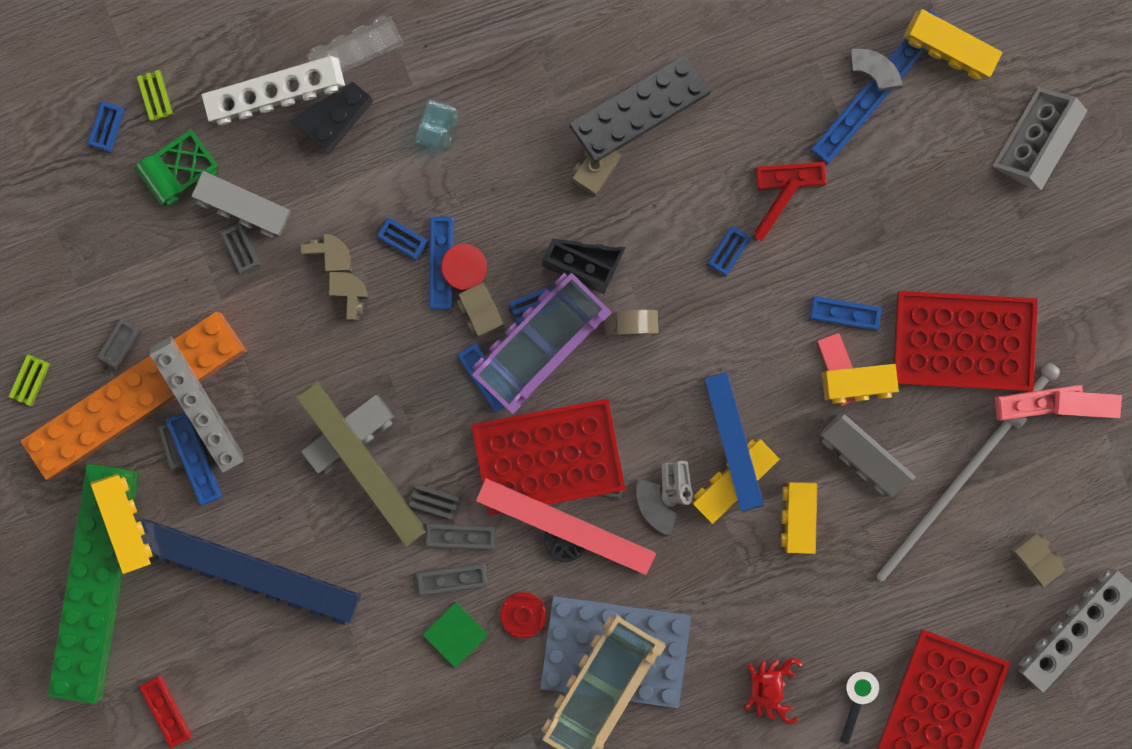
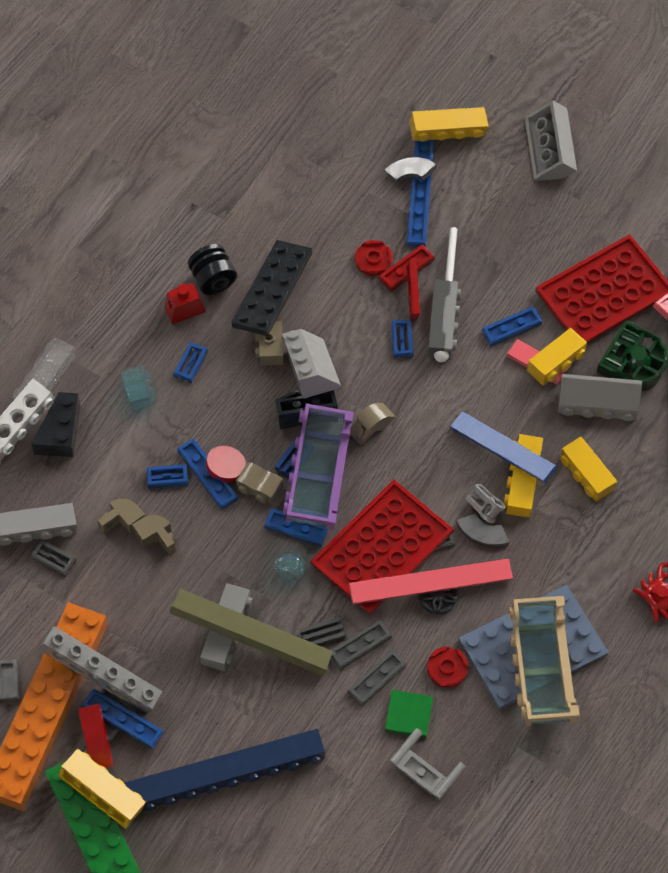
camera: 35 degrees left, 25 degrees down
(157, 460) = (96, 735): none -> red tile
(425, 697) = (421, 771): none -> light grey plate
(449, 416) = (290, 565): none -> clear light blue head
(487, 133) = (183, 376): none -> blue tile
(543, 65) = (183, 303): none -> red torso
(595, 42) = (212, 269): none -> black wheel
(615, 223) = (310, 363): none -> light grey slope
(766, 141) = (373, 258): none -> red tile
(793, 250) = (445, 309): none -> piece
(942, 439) = (632, 338): none -> dark green connector

